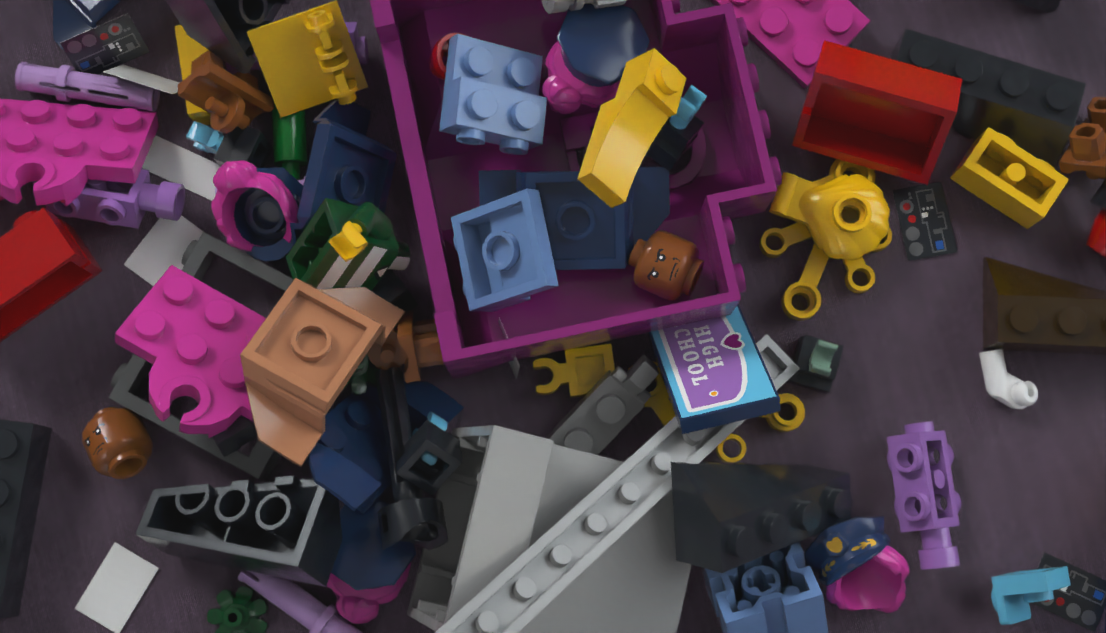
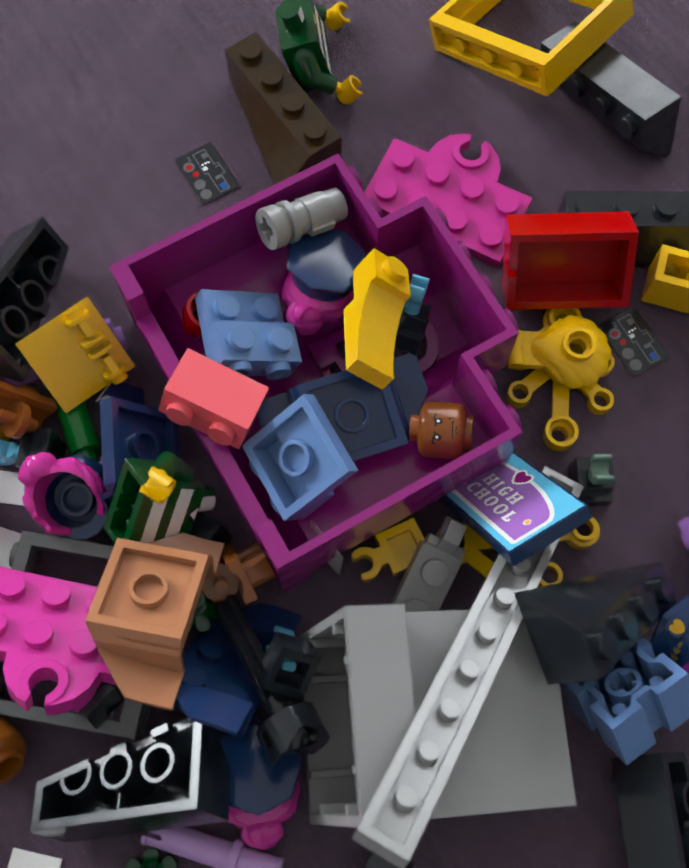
camera: 20 degrees left, 10 degrees down
(433, 161) = (212, 399): none -> coral brick

